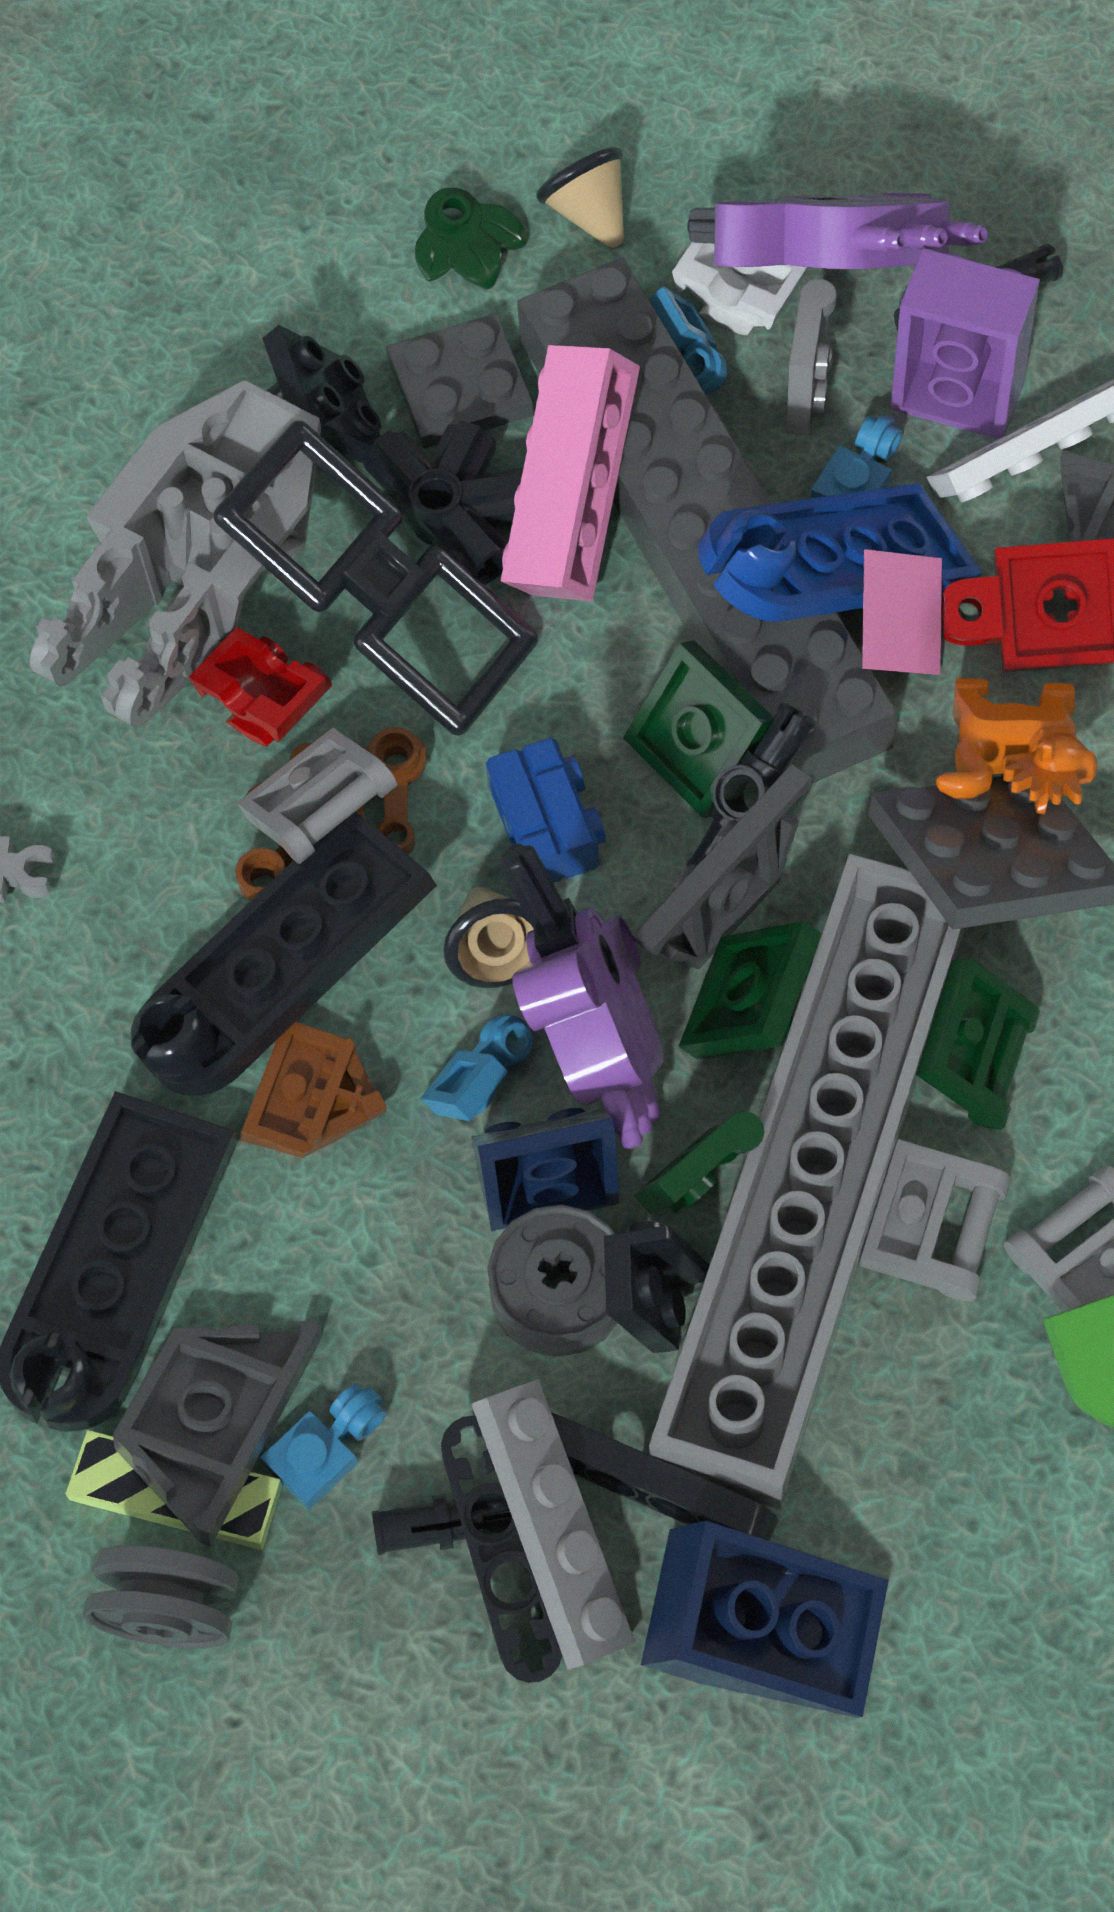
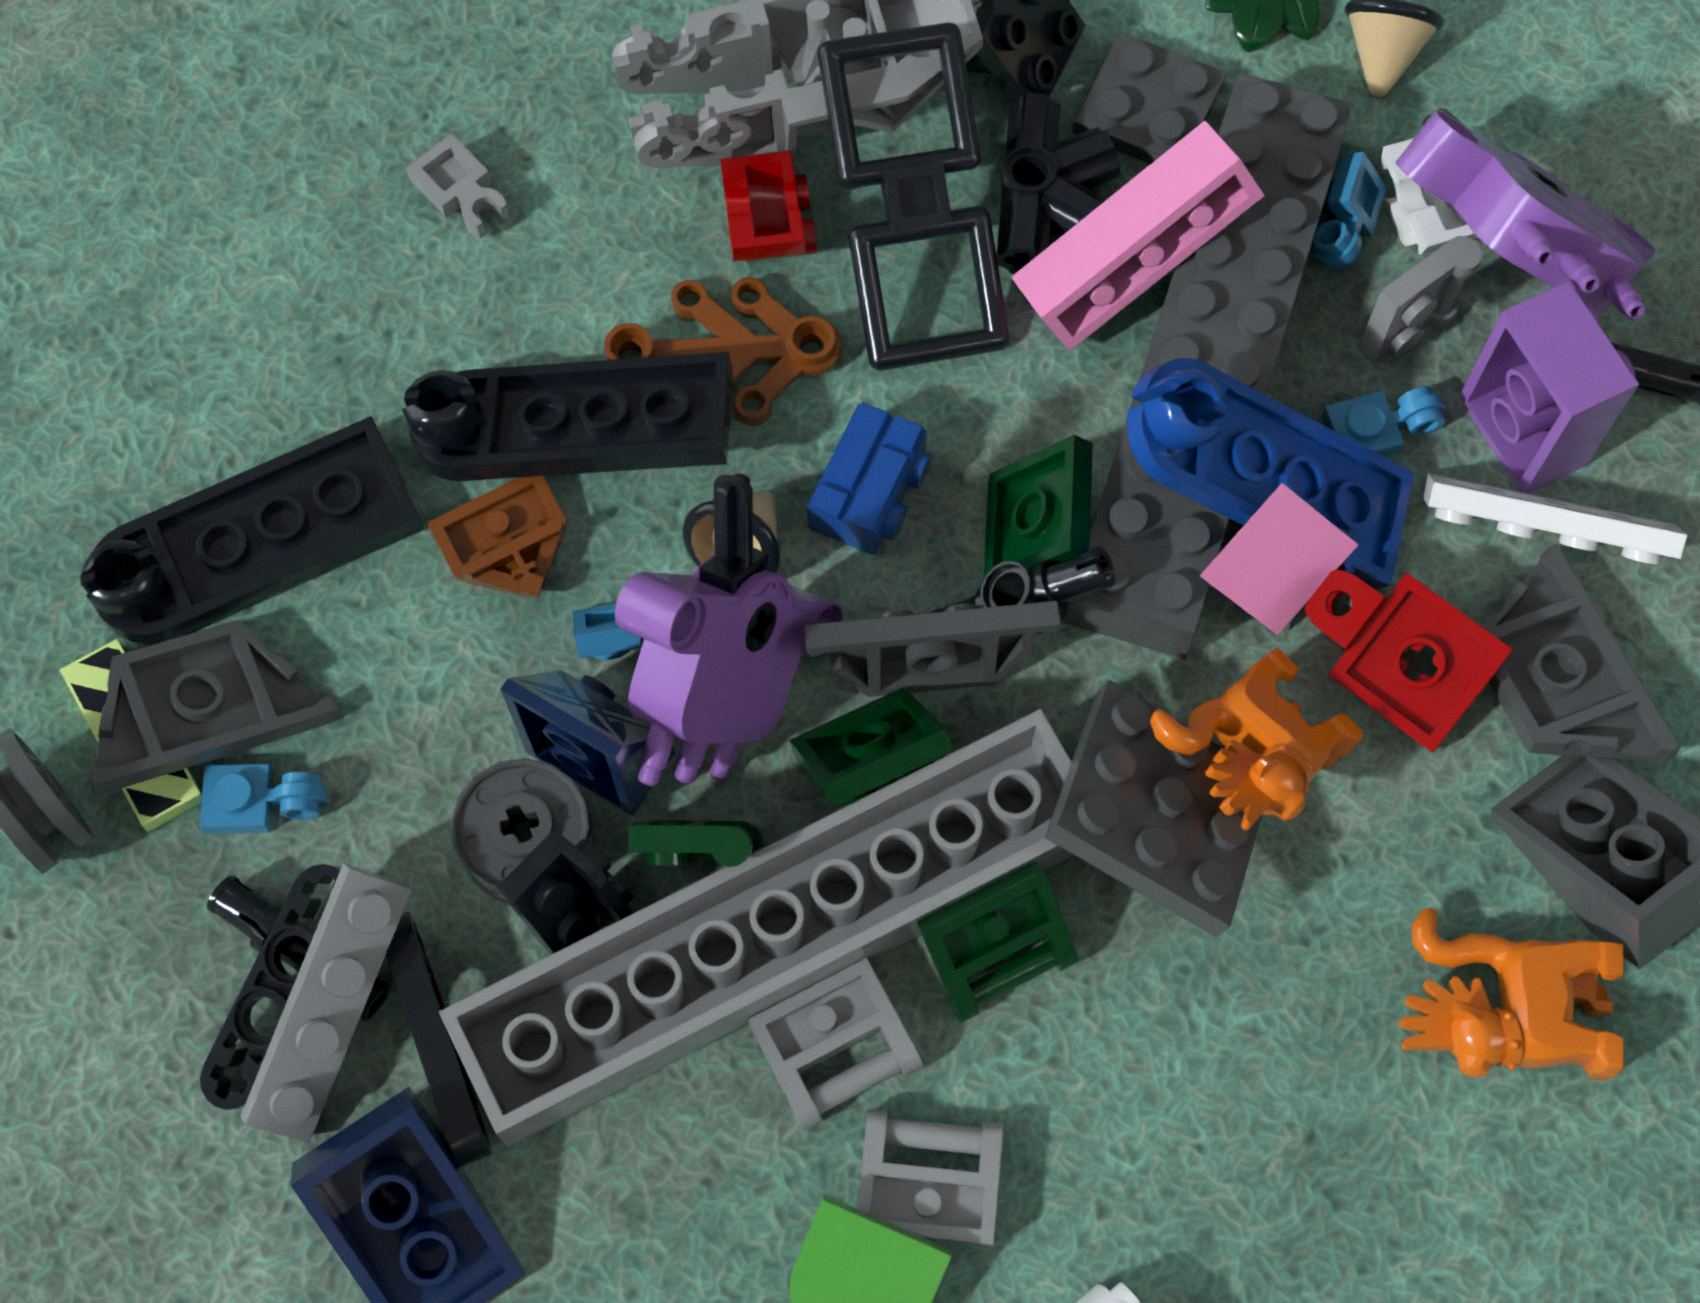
camera: 40 degrees right, 5 degrees up
(316, 792) = (715, 321): light grey plate -> none

